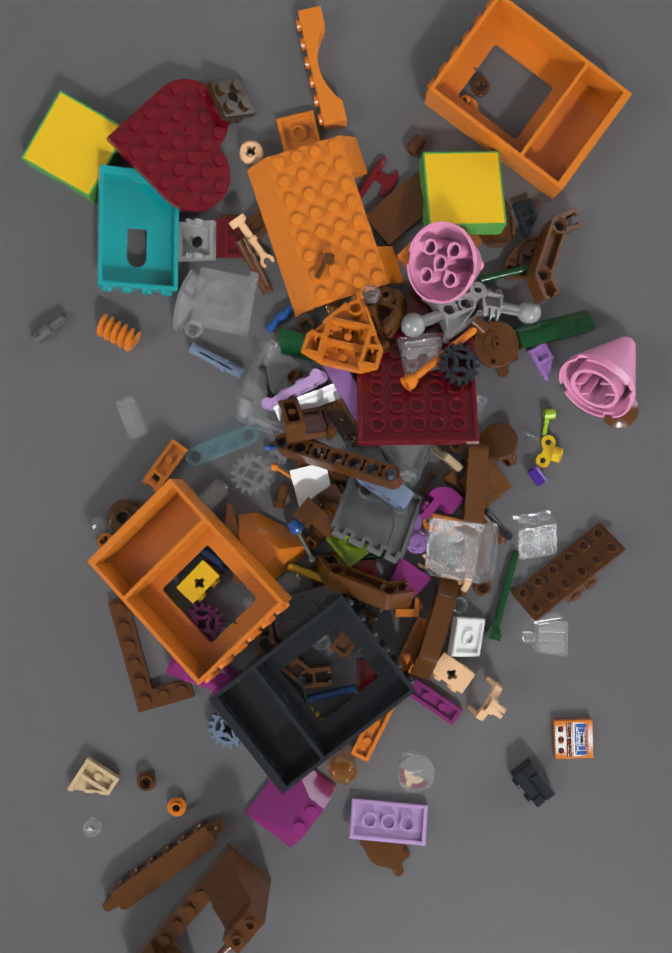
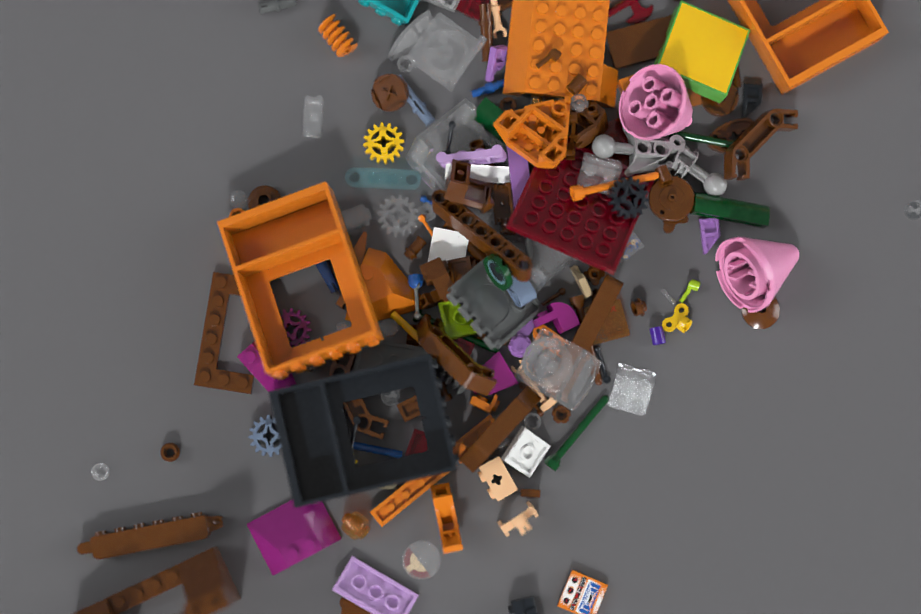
camera: 20 degrees right, 5 degrees down
(94, 778) = (124, 427): tan wing -> none
(165, 465) = (324, 171): orange plate -> none
(176, 801) = (193, 488): orange plate -> none
(189, 585) = (295, 288): yellow brick -> none
(191, 363) = (389, 92): none -> reddish brown tile
(218, 407) = (376, 143): none -> yellow gear
(275, 288) = (496, 61): none -> medium lavender tile
(362, 278) = (577, 84): none -> reddish brown hinge
(370, 491) = (497, 273): none -> dark green tile
(423, 730) = (446, 518): none -> orange arch
(435, 701) = (468, 500): magenta tile -> none
(486, 670) = (529, 493): none -> reddish brown tile
(501, 441) = (637, 287): reddish brown tile -> none
(549, 636) = (601, 488): clear torso -> none
(568, 573) = (646, 438): reddish brown bracket -> none

